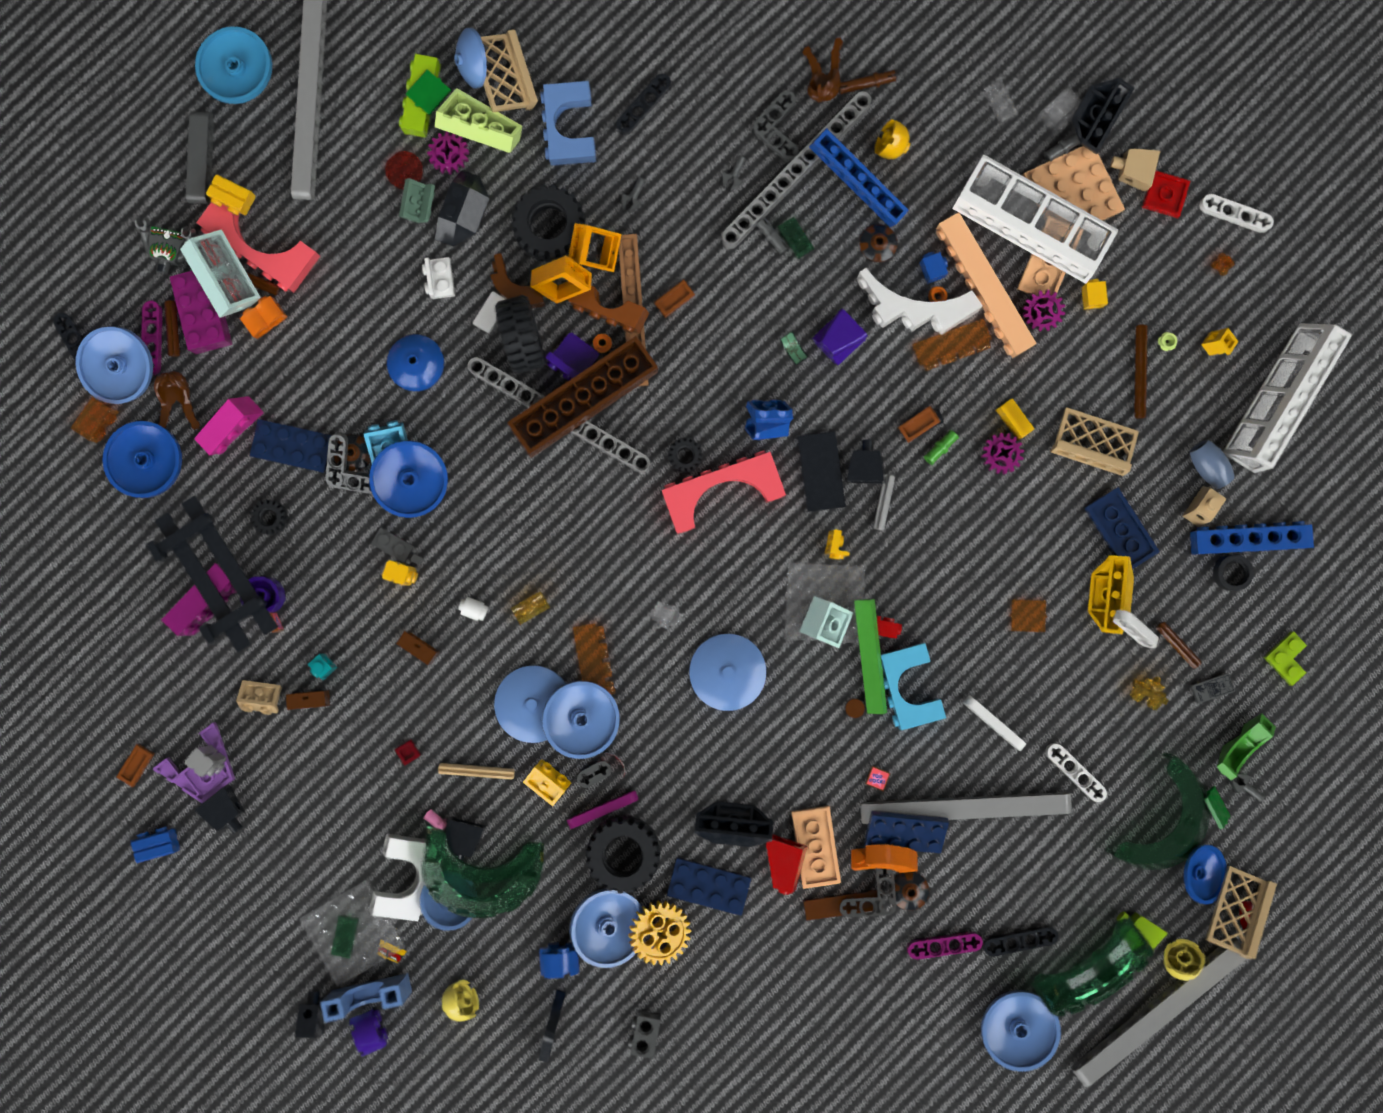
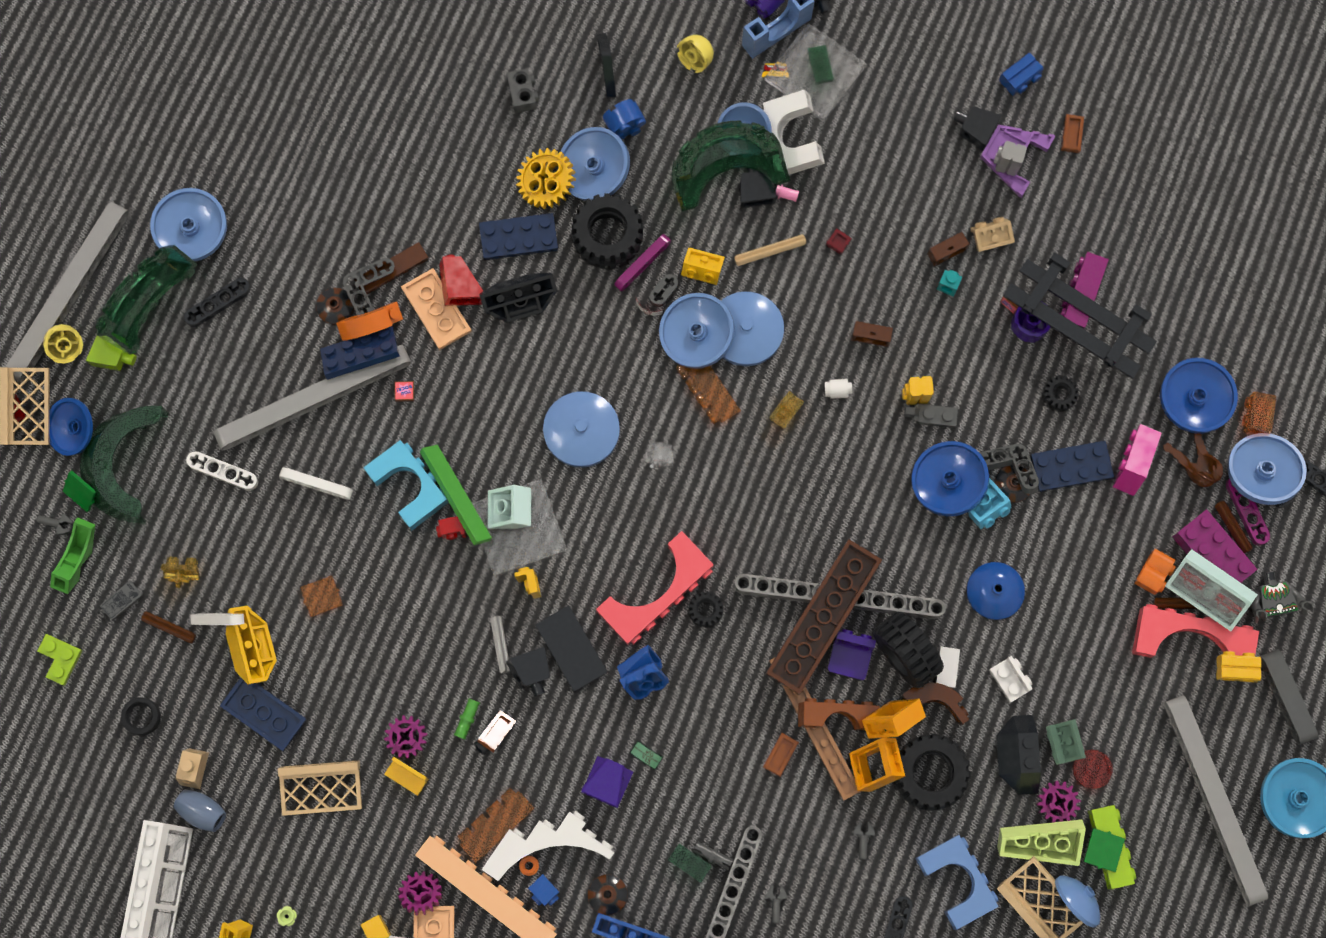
camera: 150 degrees right, 10 degrees down
(602, 349) = (825, 686): orange plate -> none
(854, 708) = (450, 444): reddish brown tile -> none
(944, 945) = (286, 273): magenta beam -> none
(1141, 371) = (301, 875): reddish brown axle -> none
(1301, 538) = (86, 773): blue brick -> none

